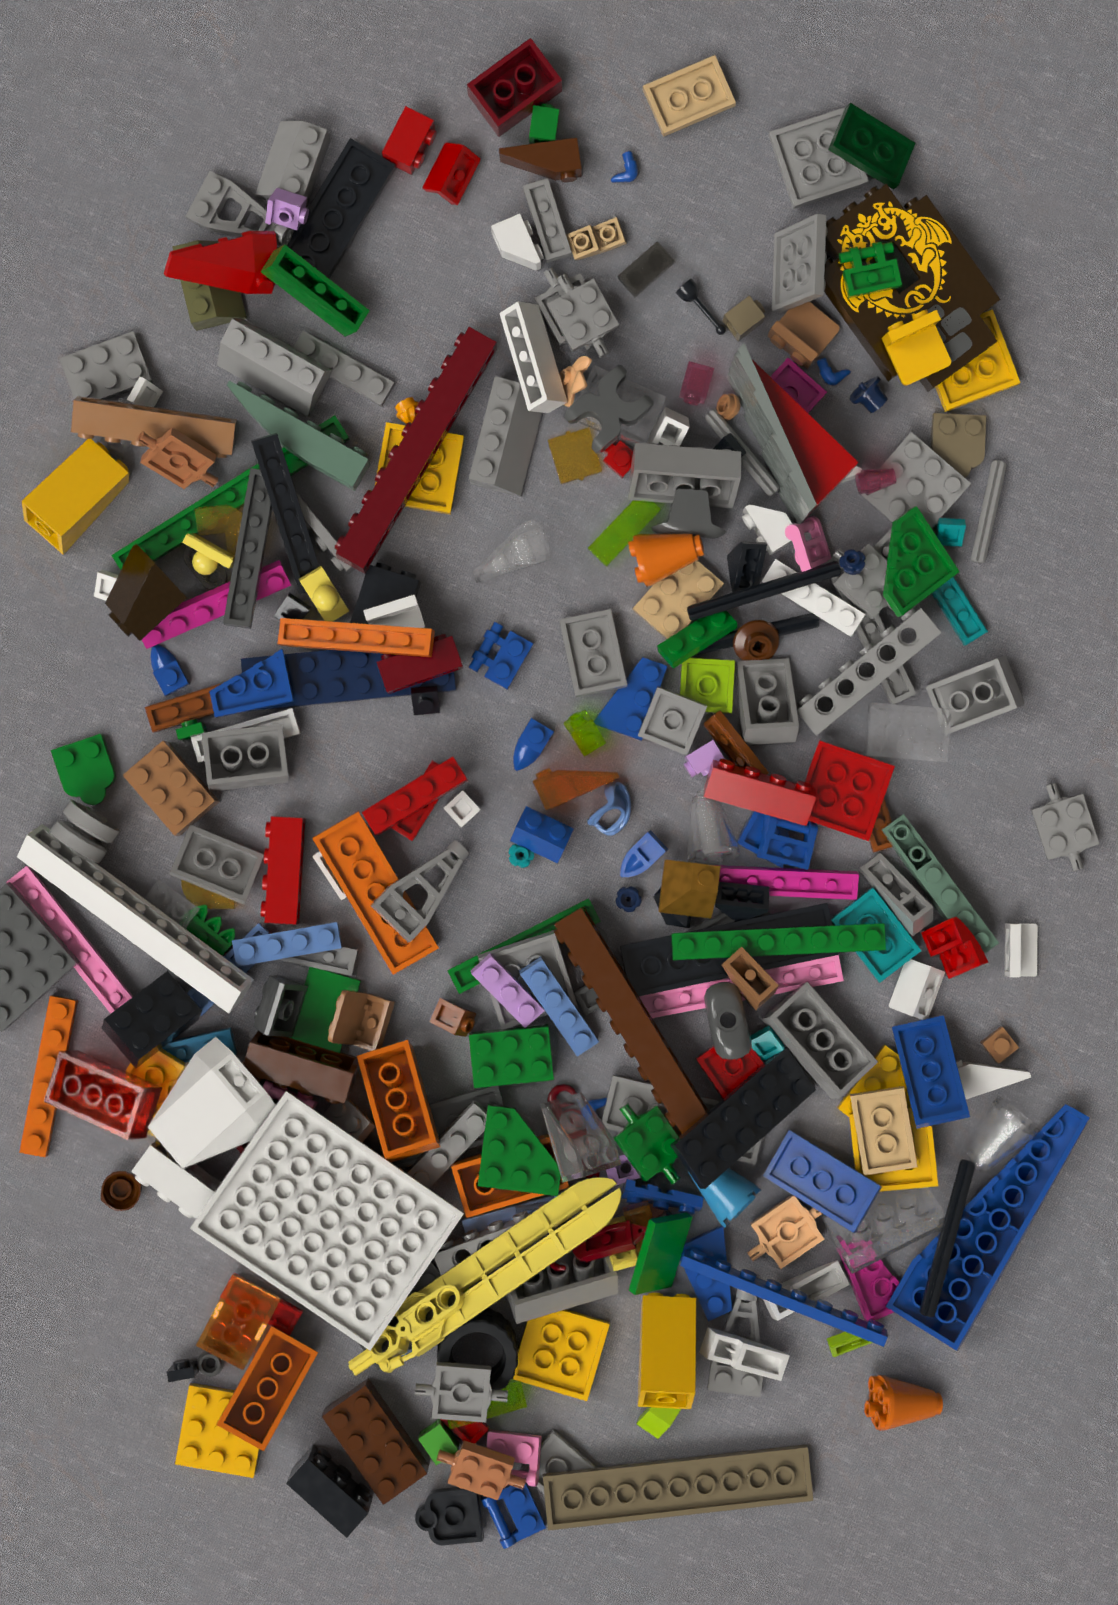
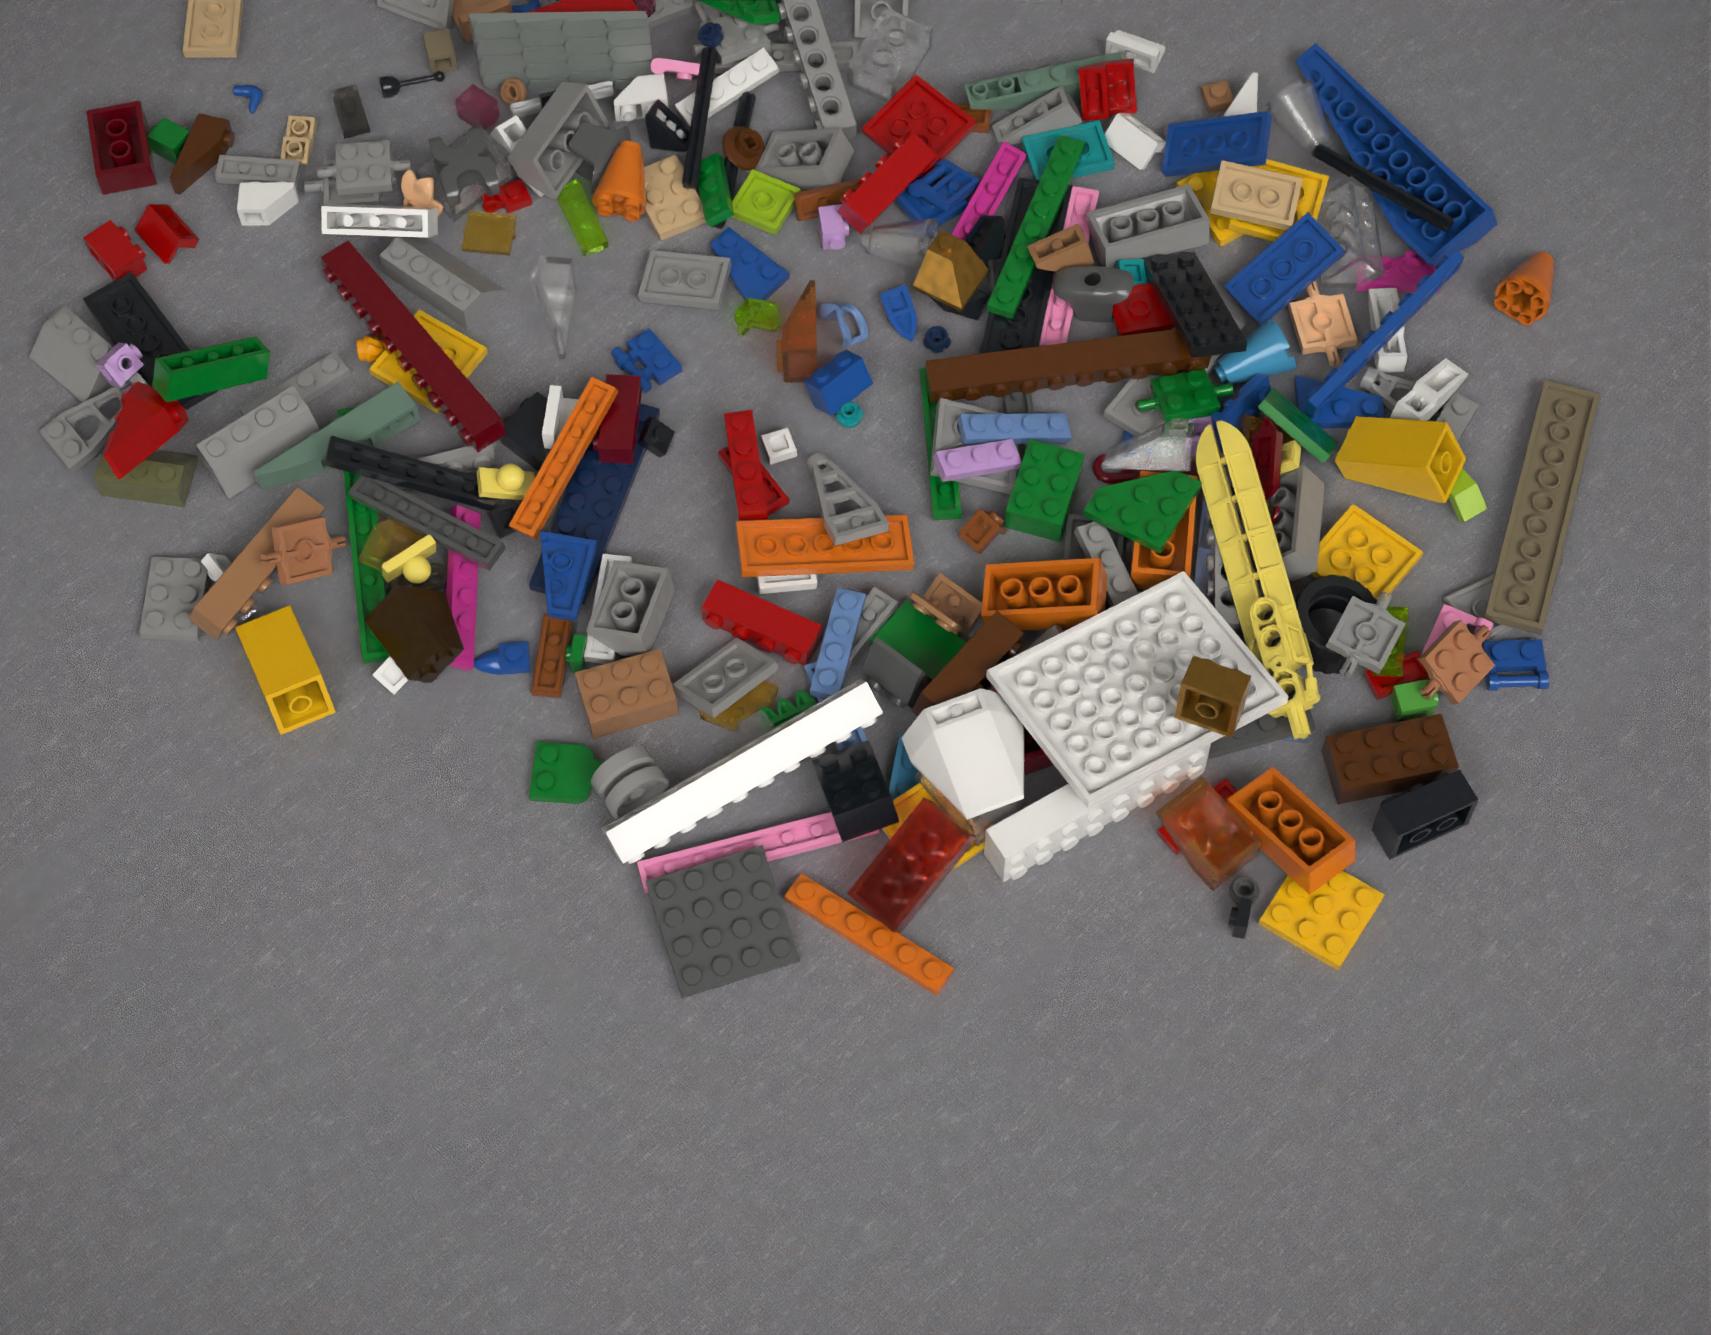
camera: 60 degrees left, 25 degrees down
(120, 1191) = (1022, 903): reddish brown hat -> none
(324, 1297) = (1212, 696): none -> pearl gold brick
(451, 1516) = (1496, 722): black plate -> none
(531, 744) = (744, 367): blue plate -> none
(672, 720) = (783, 234): light grey plate -> none
(845, 1343) = (1452, 306): lime tile -> none

